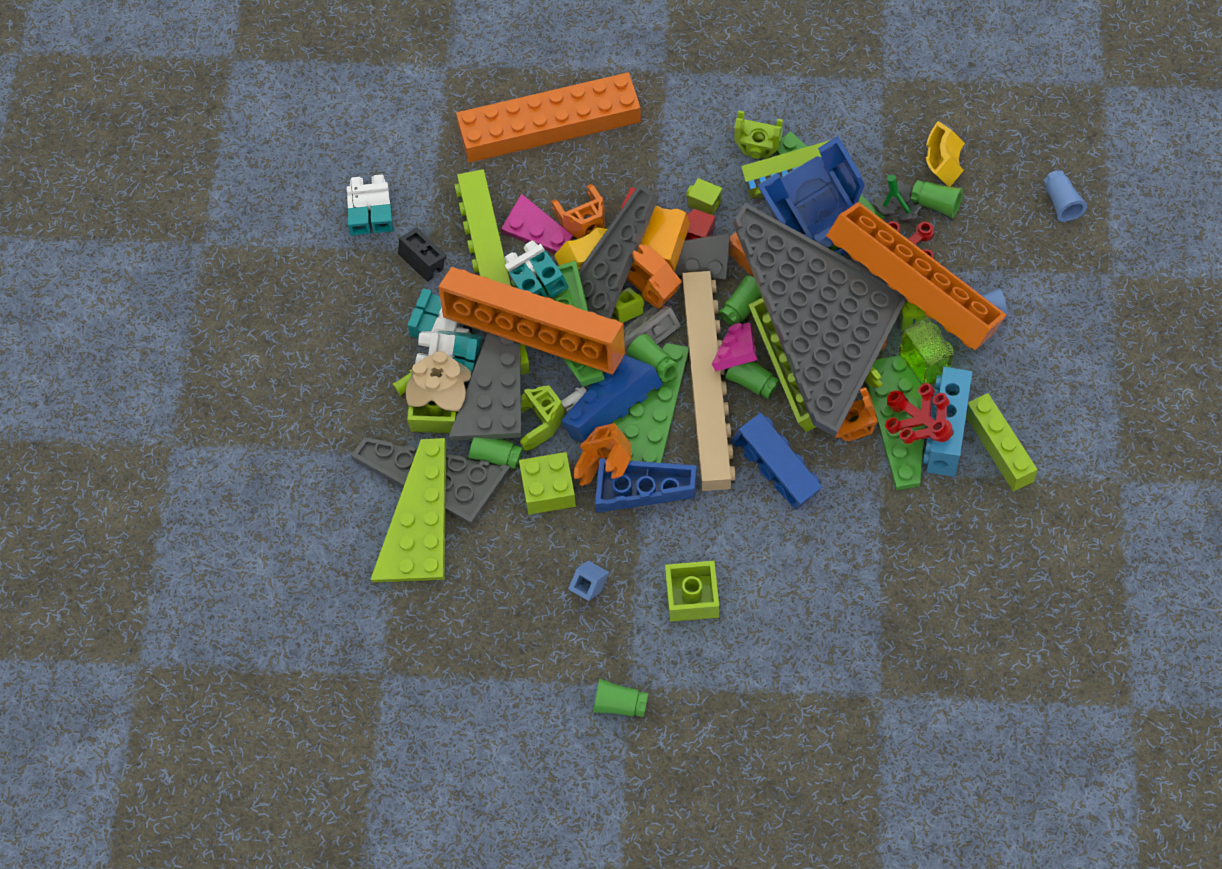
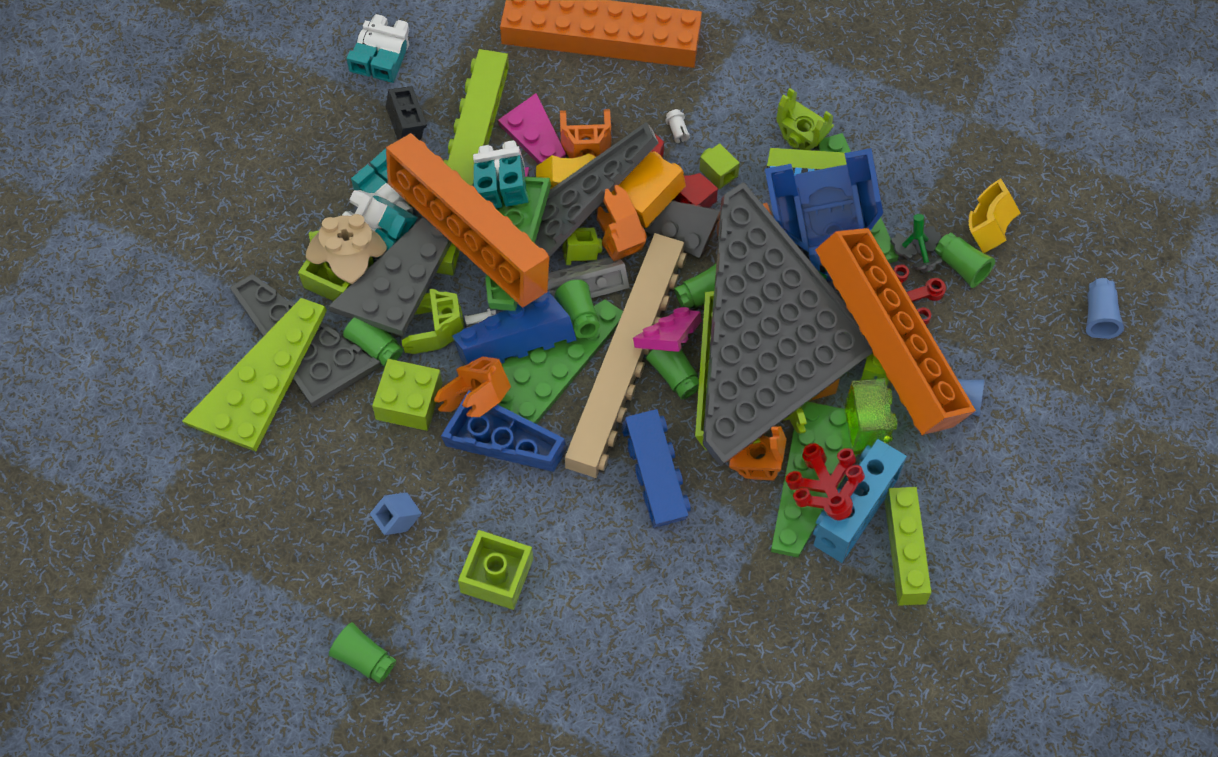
camera: 20 degrees right, 0 degrees up
(653, 176) = (676, 121): none -> white pin

